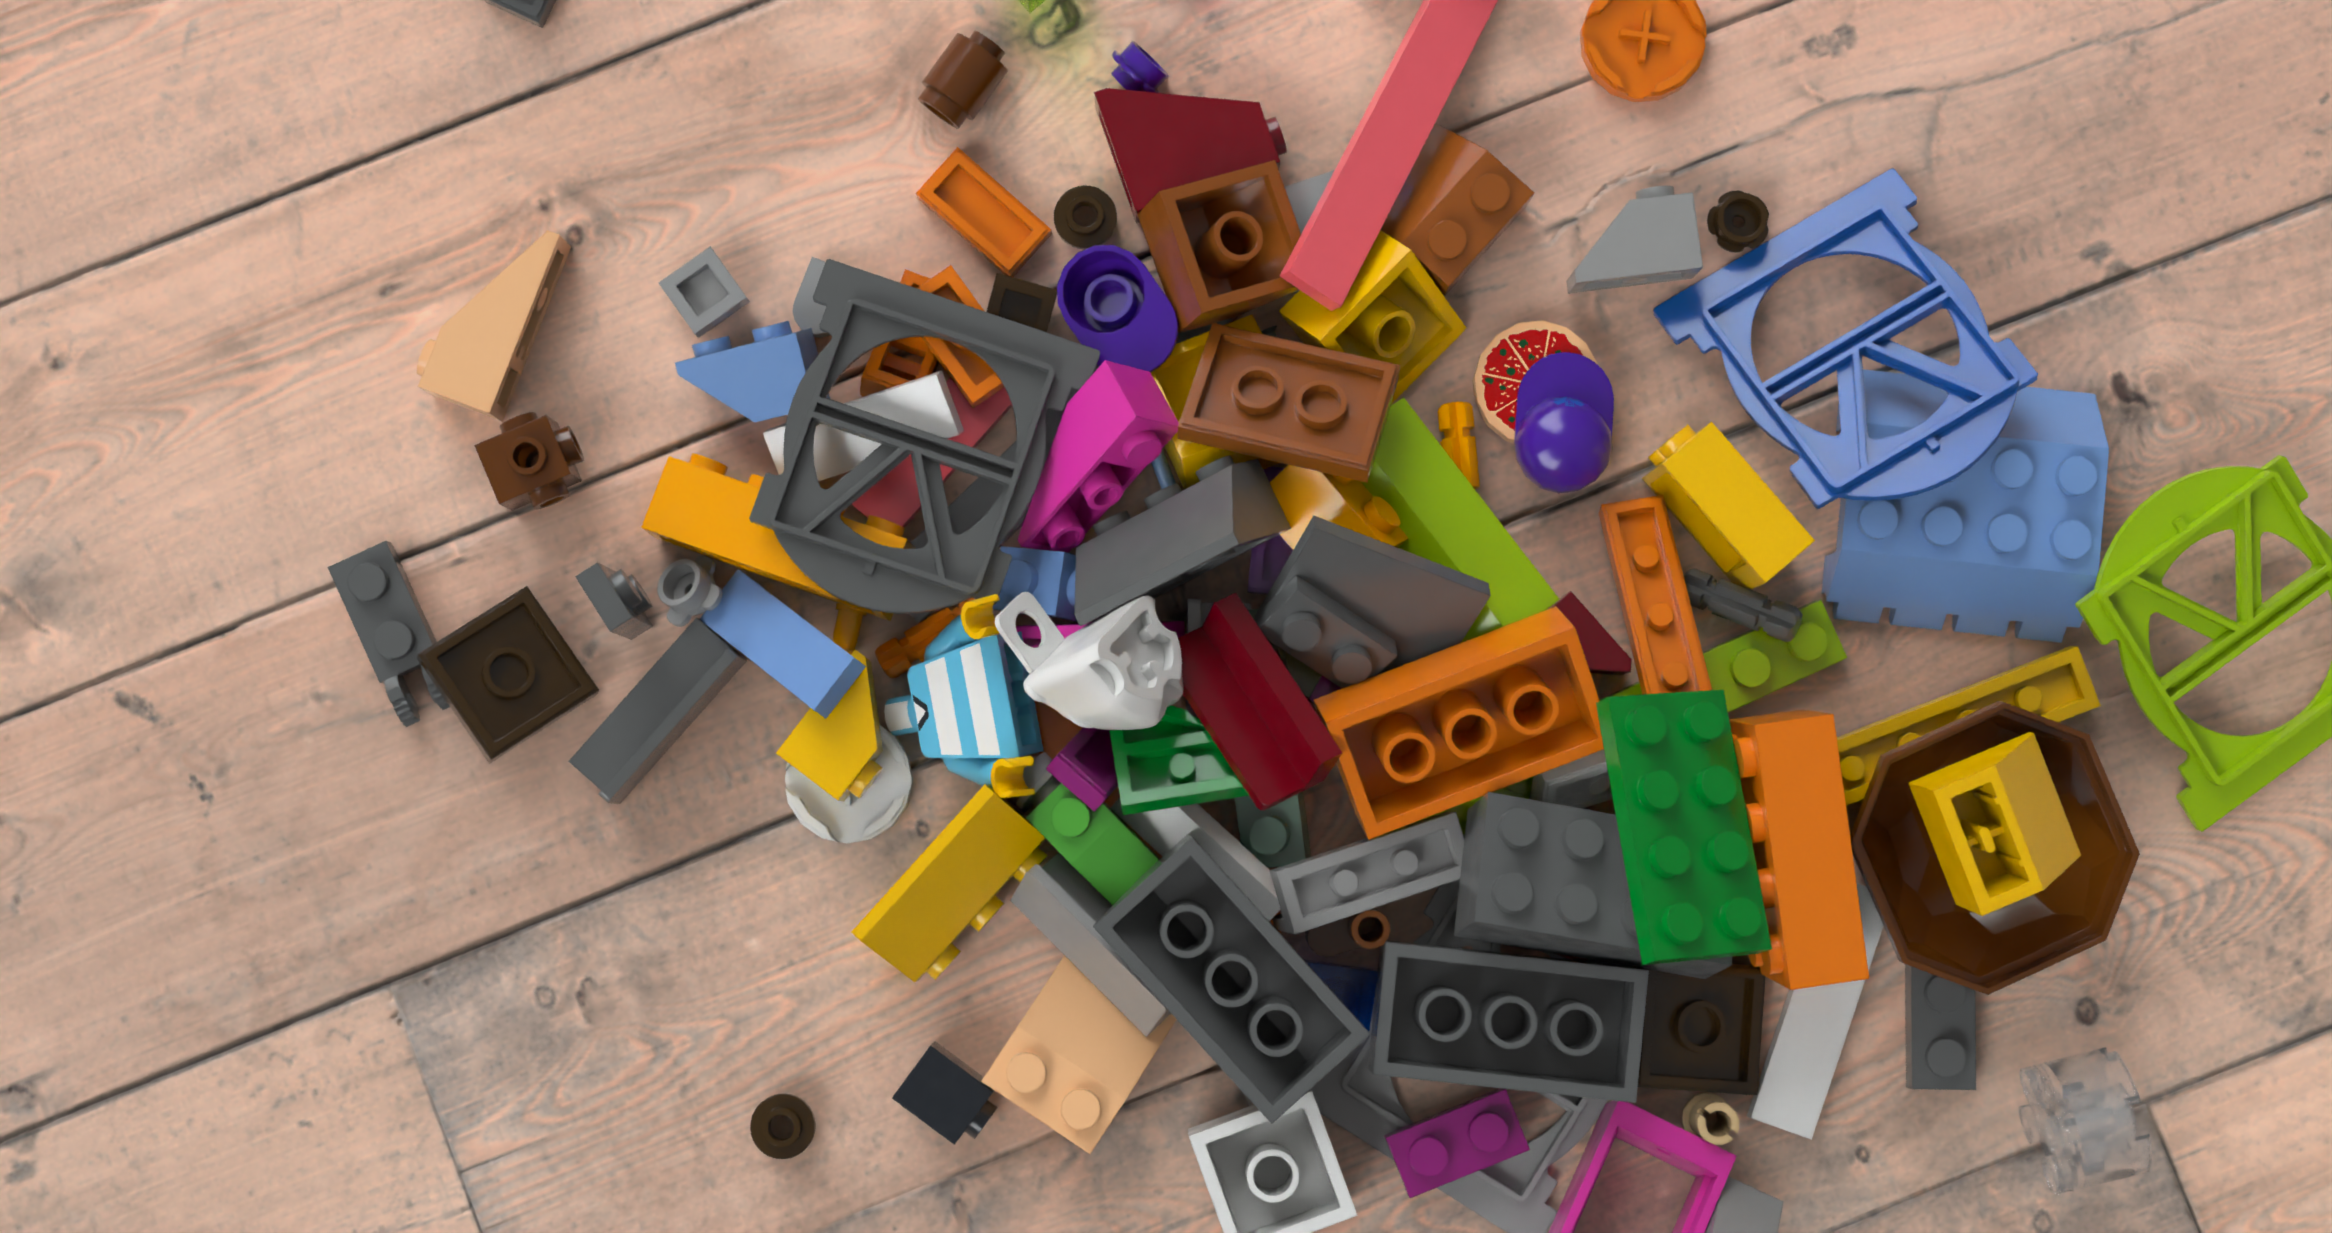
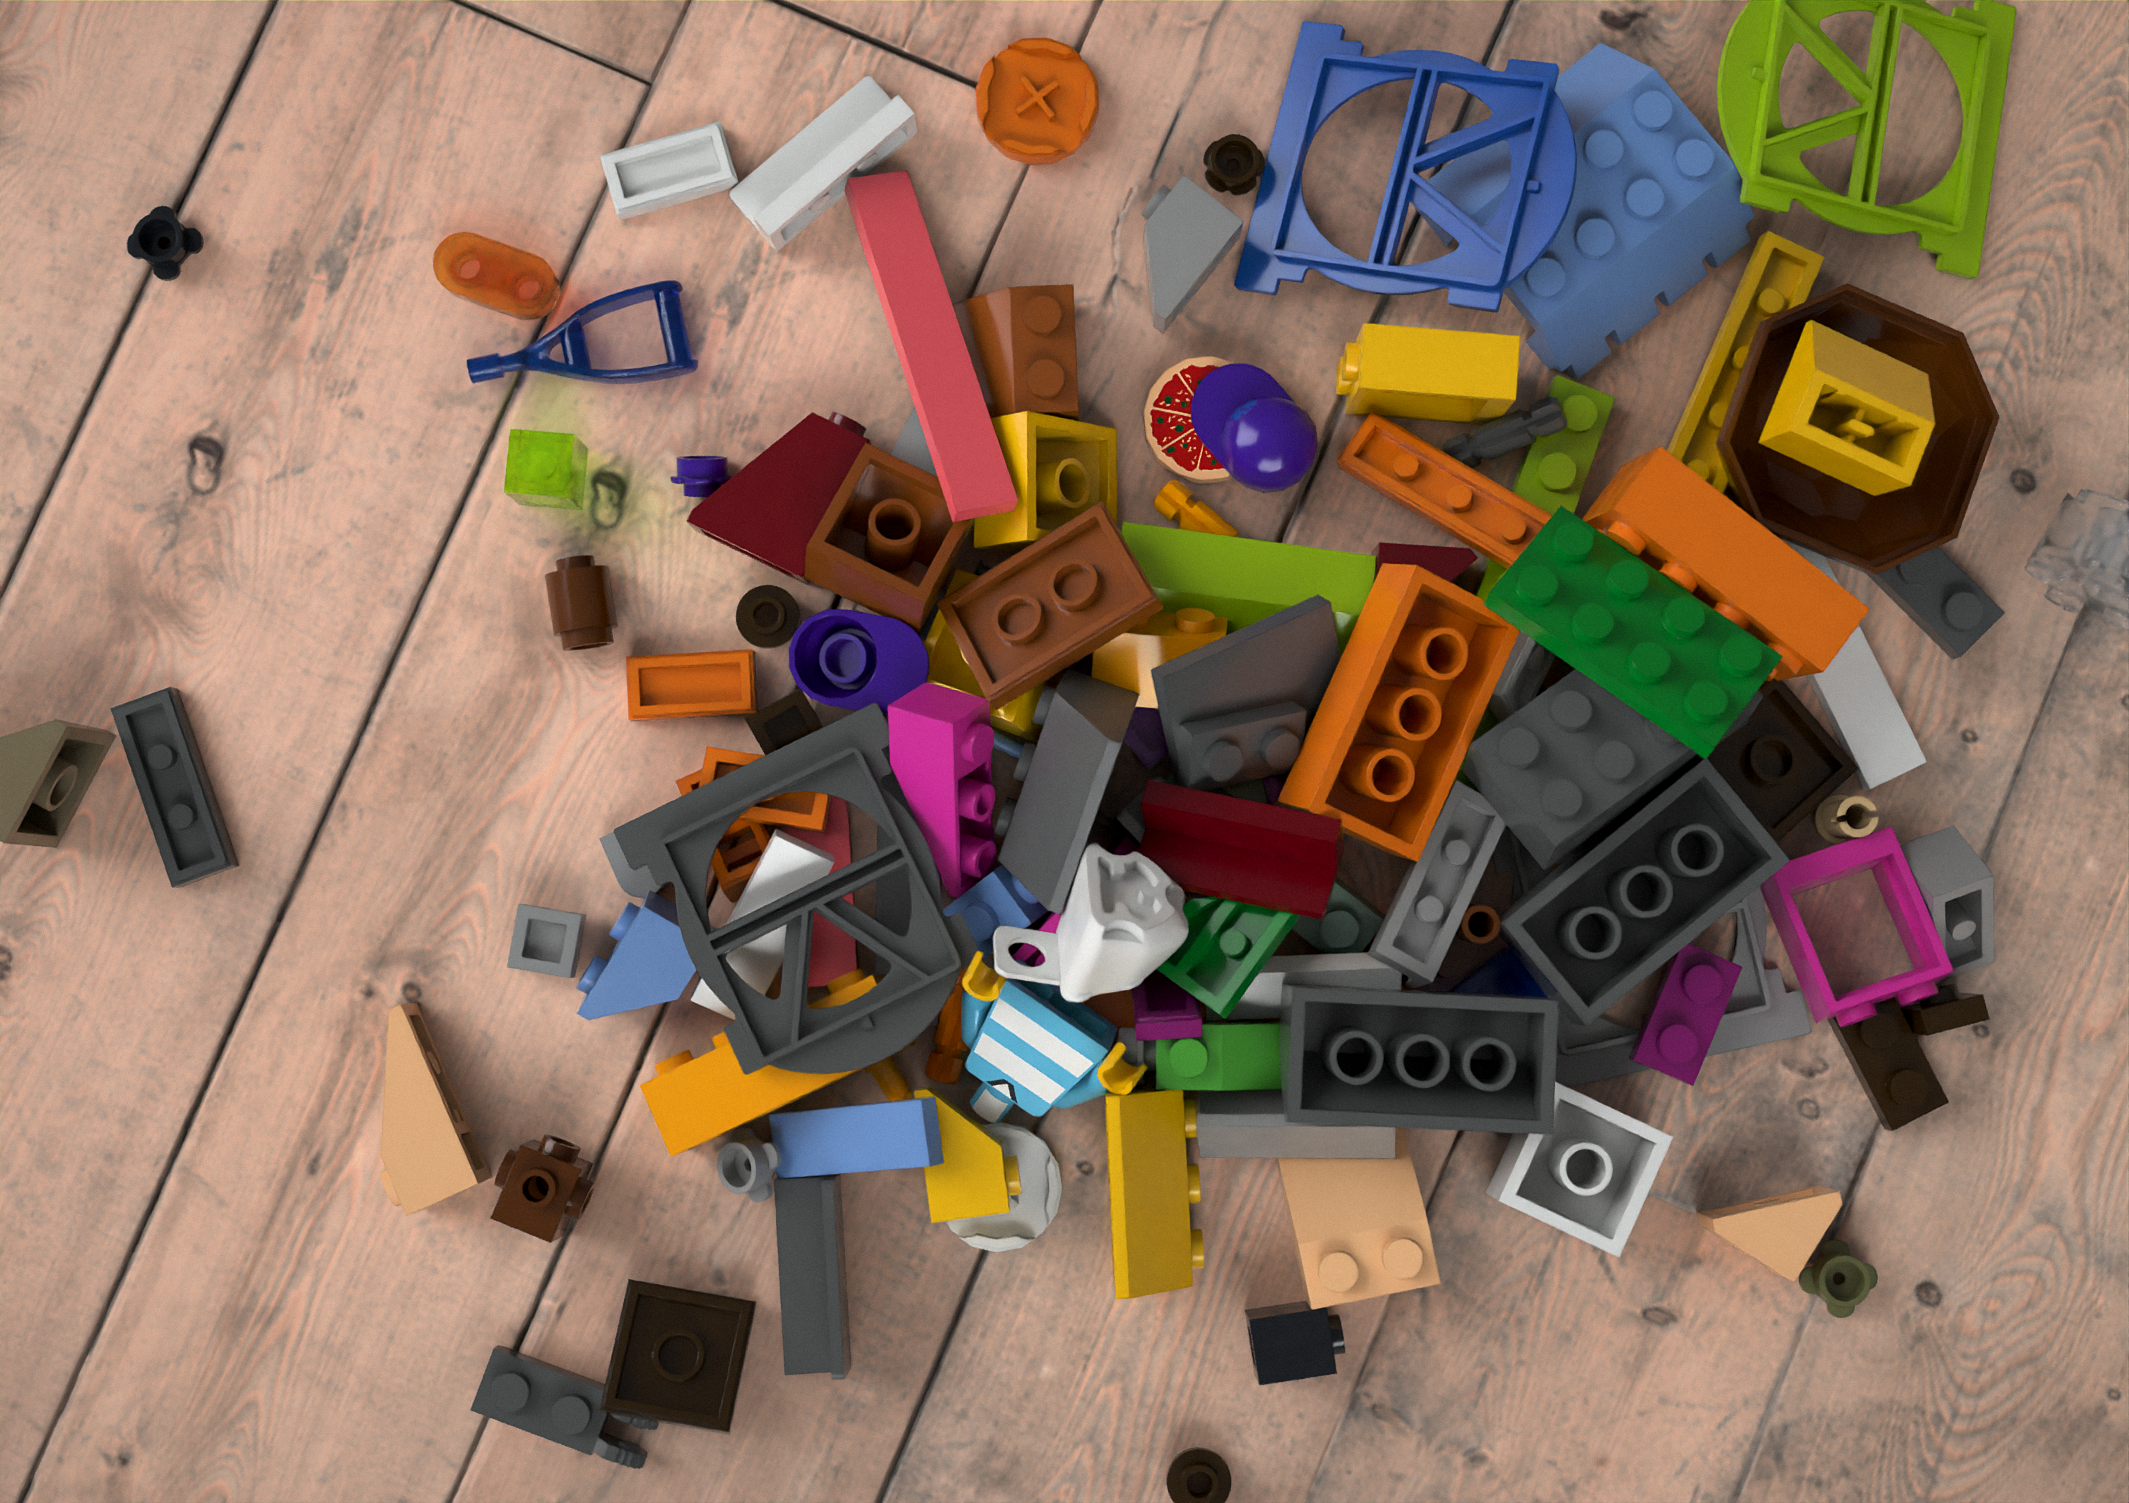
camera: 40 degrees left, 0 degrees up
(617, 600) = (705, 1226): dark grey plate -> none

